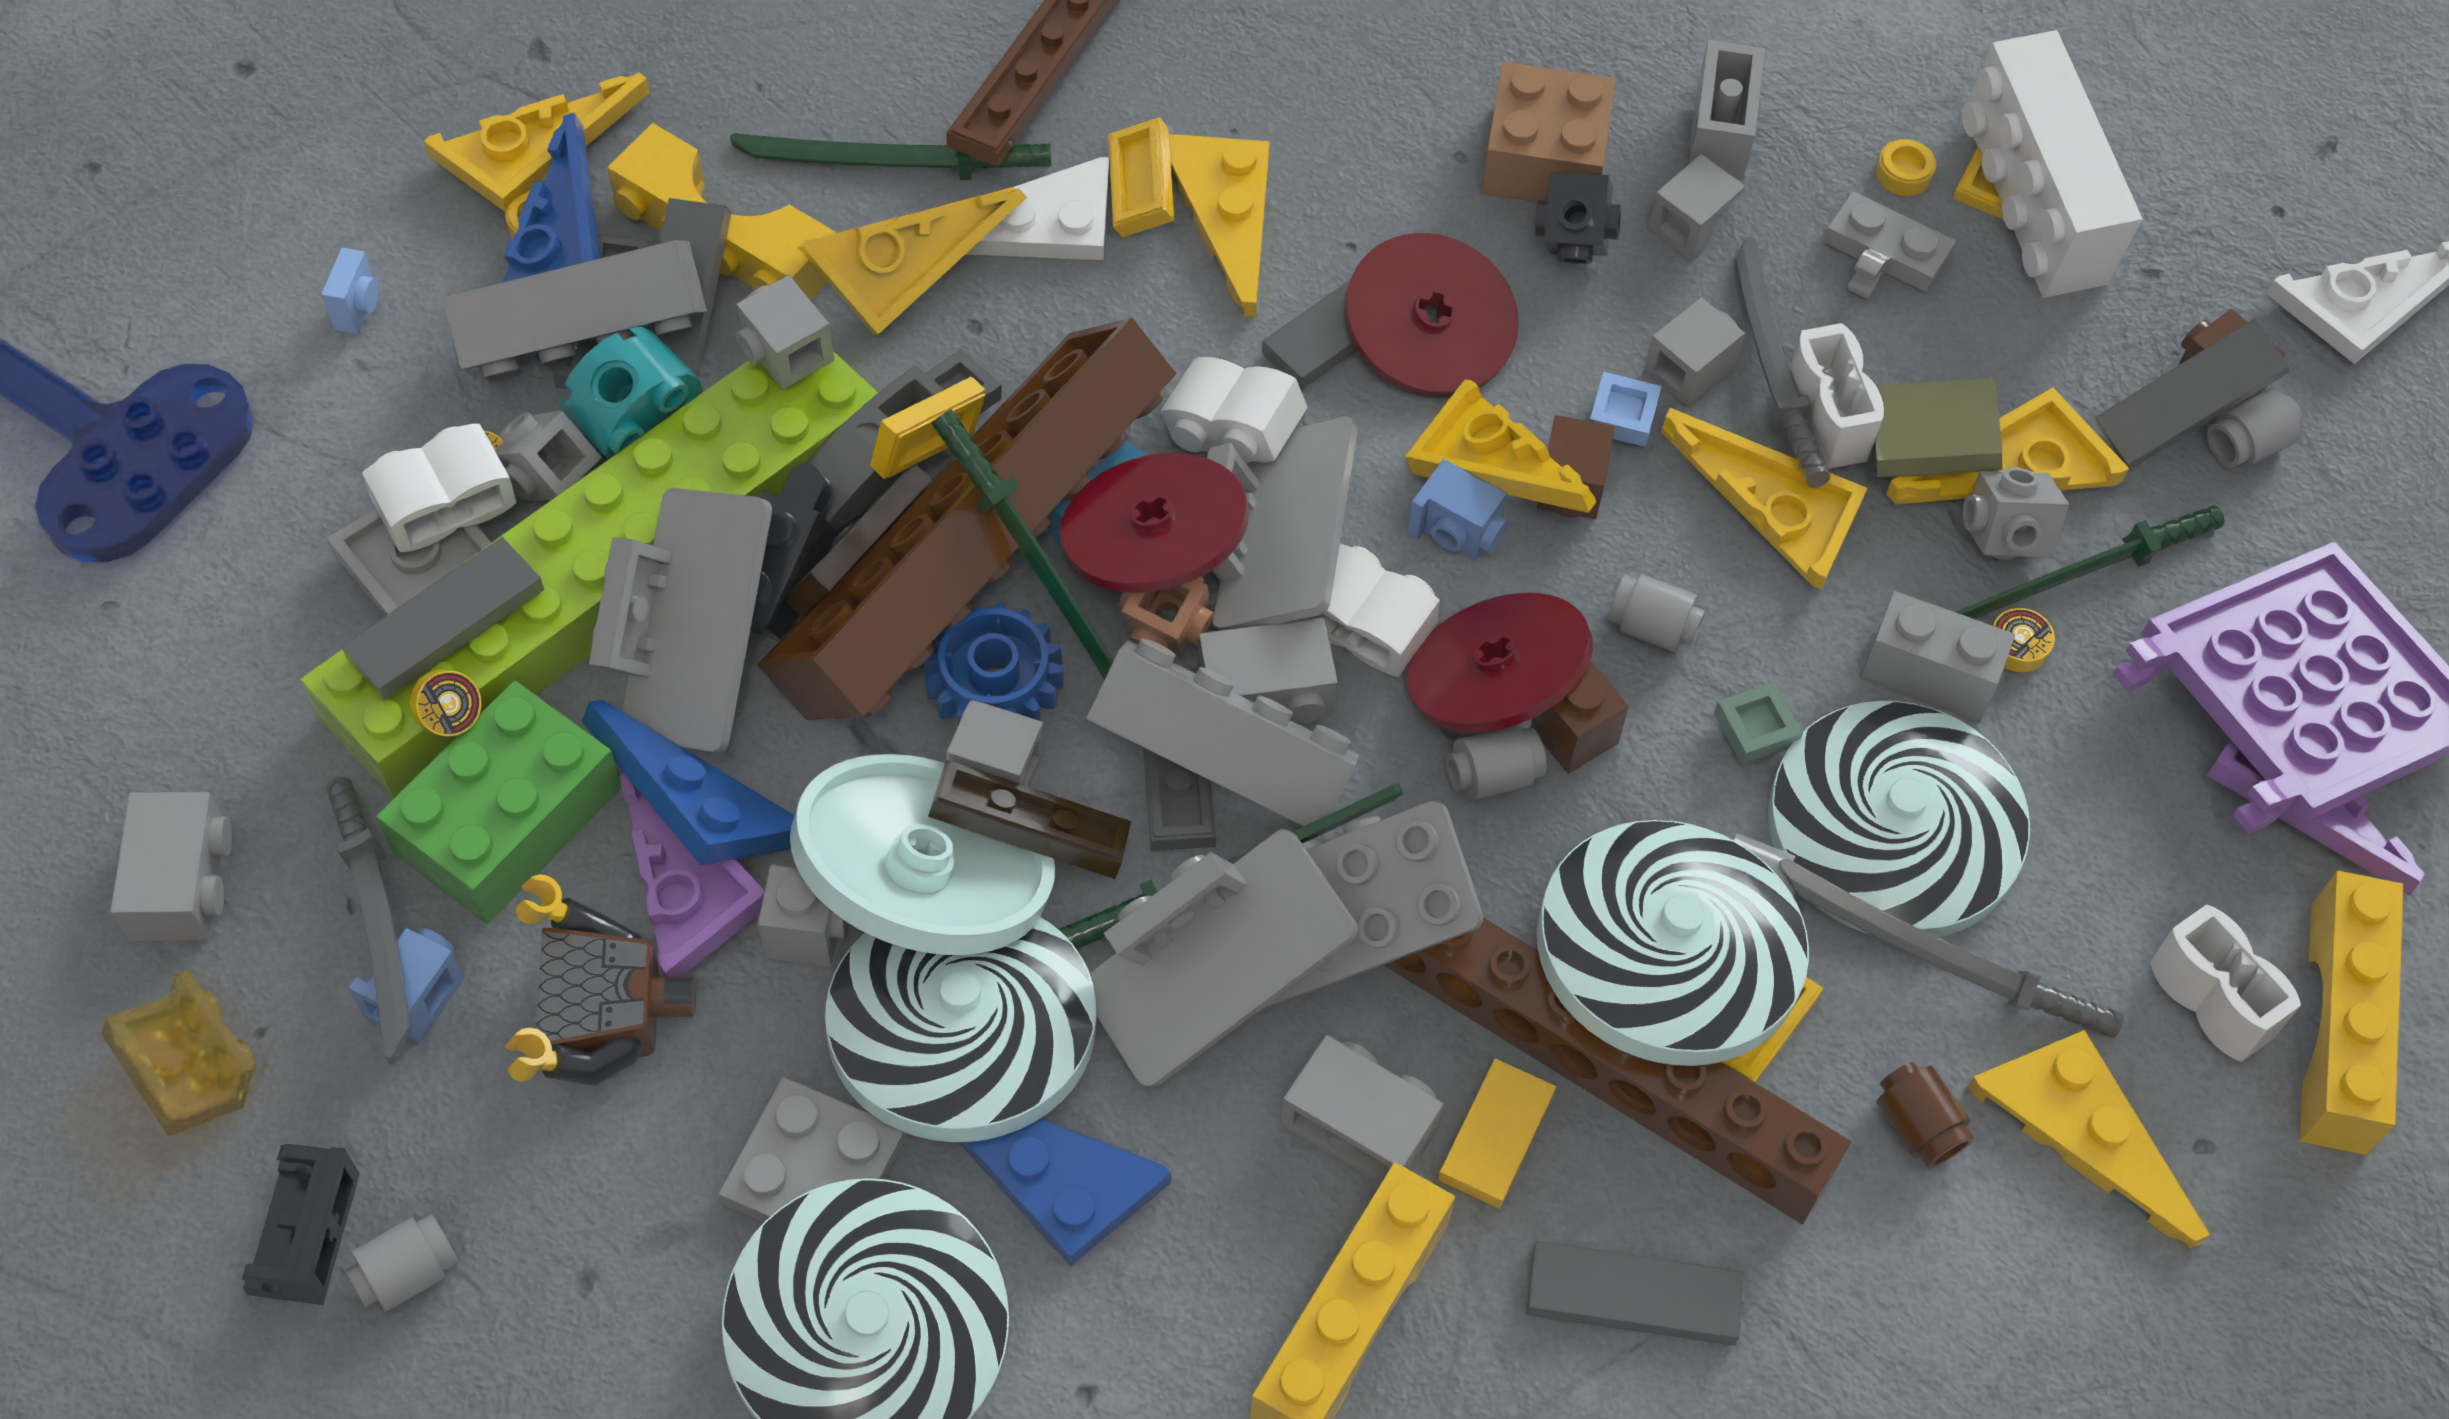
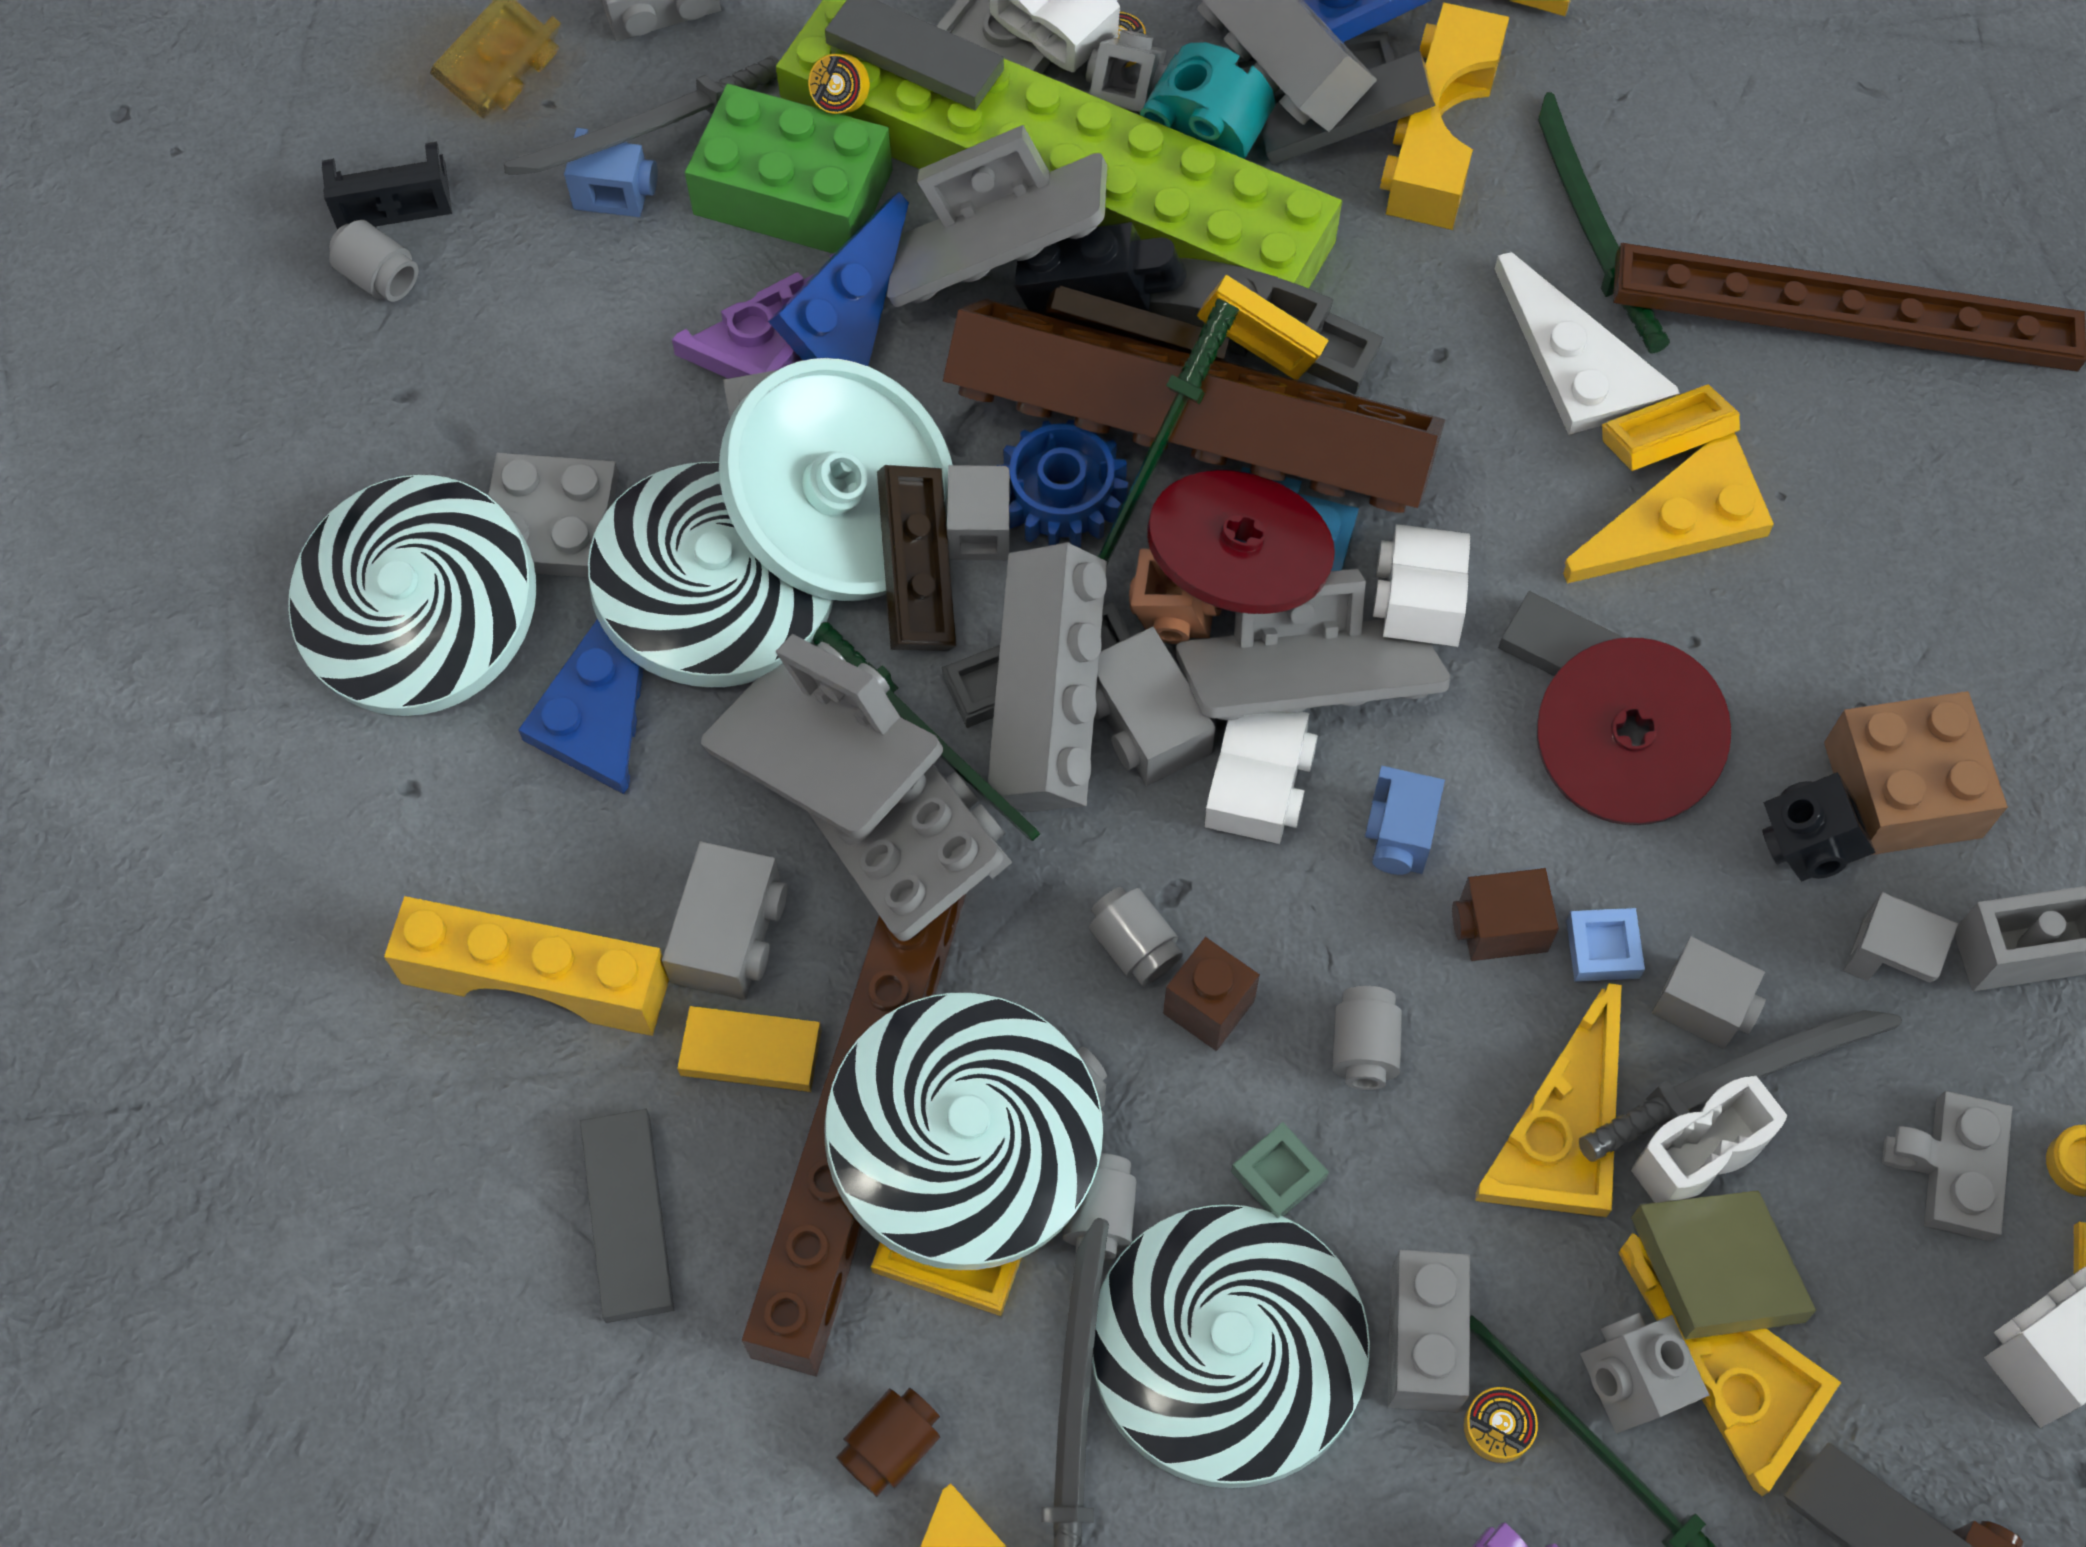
camera: 75 degrees right, 5 degrees up
(593, 993) = (634, 298): torso -> none
(784, 332) = (1301, 177): light grey brick -> none
(895, 260) = (1458, 254): yellow wing -> none
(1497, 451) = (1479, 824): yellow wing -> none
(1500, 662) = (1236, 901): dark red piece -> none

